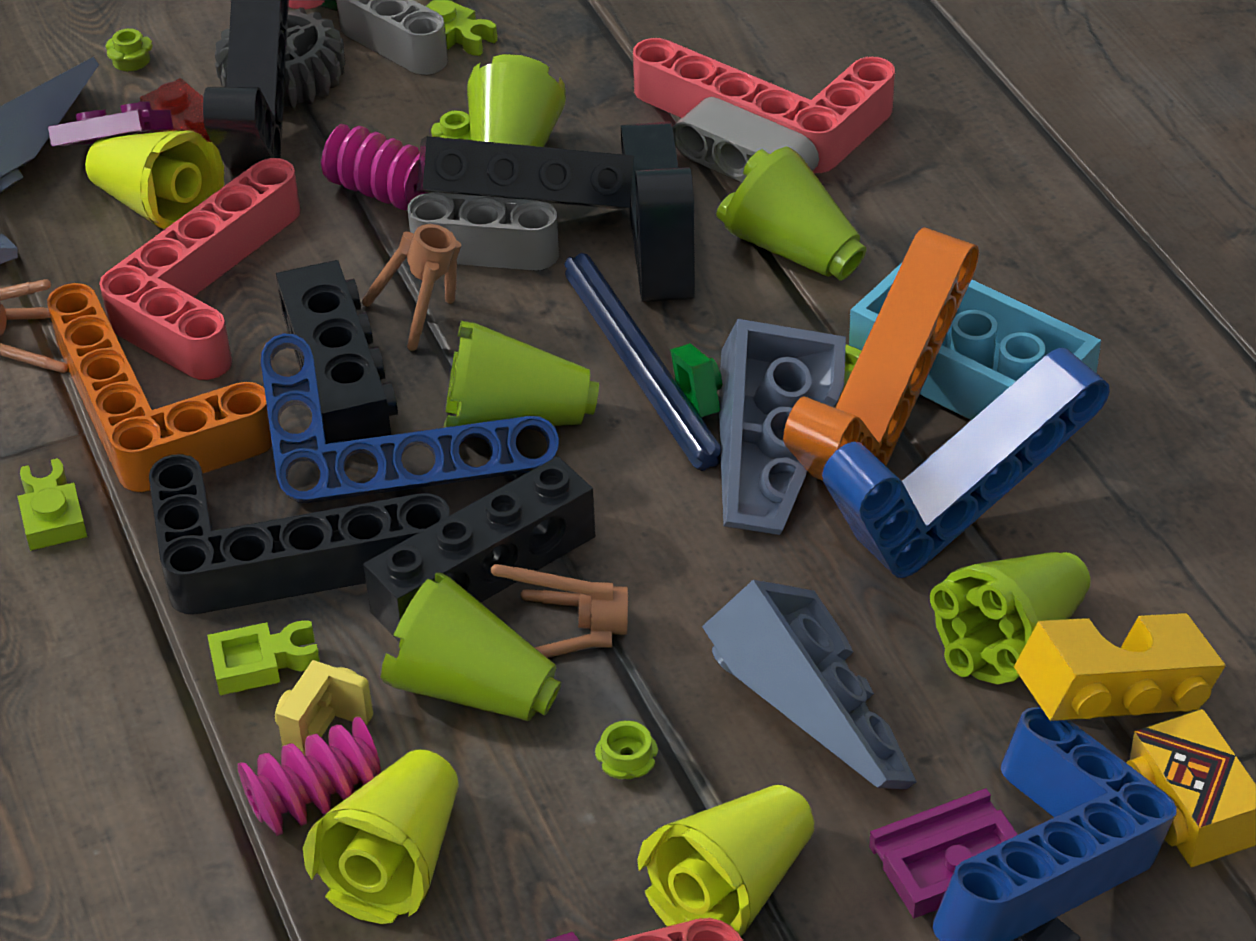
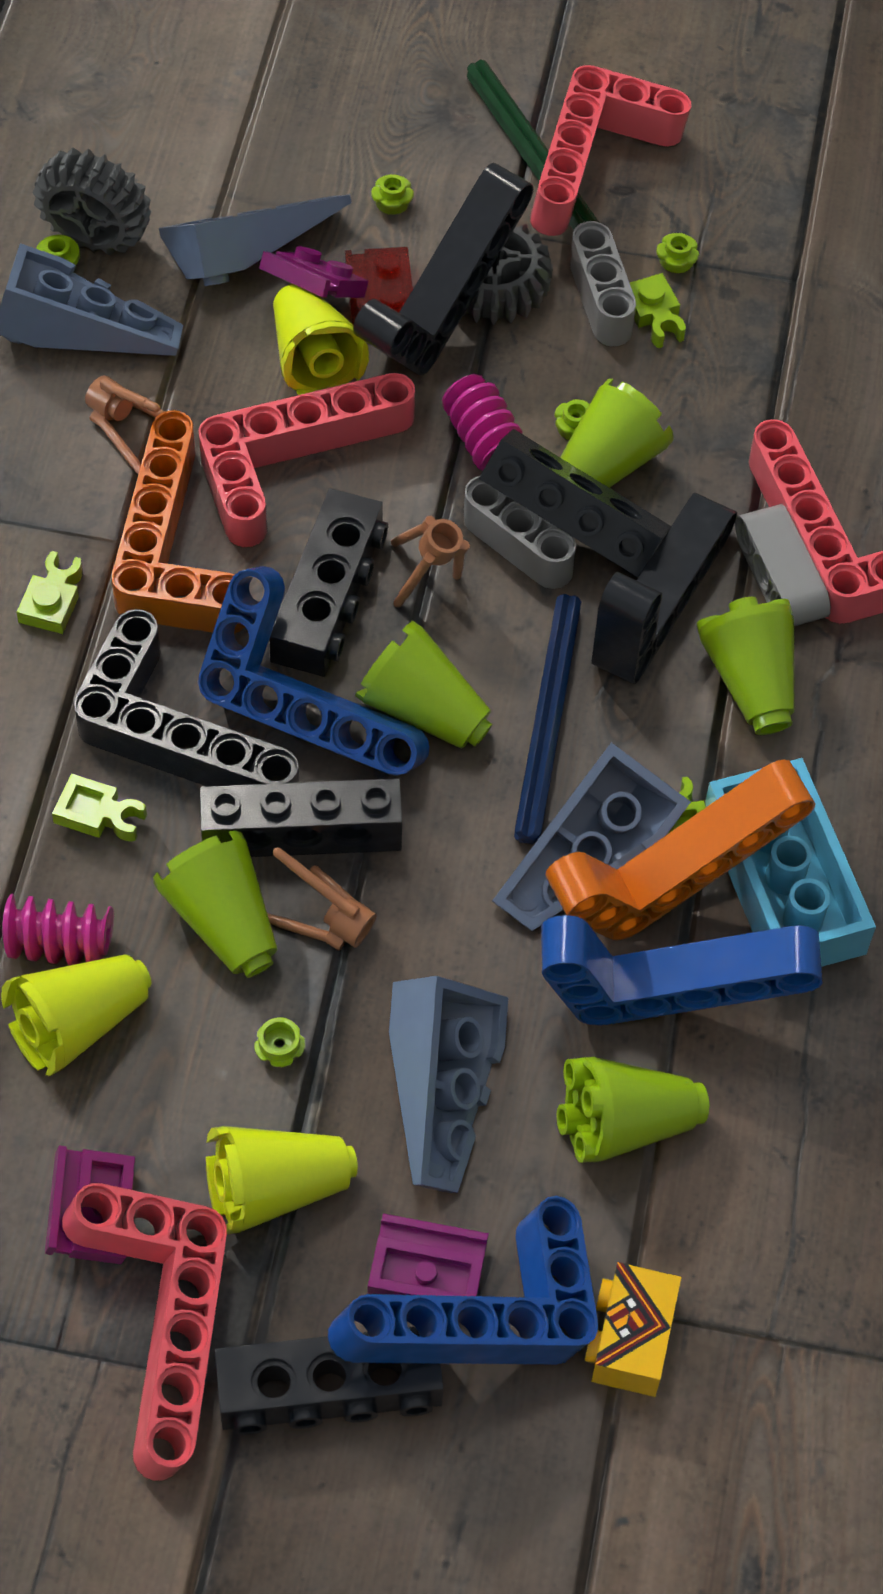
camera: 30 degrees right, 15 degrees up
(318, 698) = (101, 872): light yellow bracket -> none
(698, 378) = (566, 766): green plate -> none
(1083, 676) = (611, 1198): yellow arch -> none

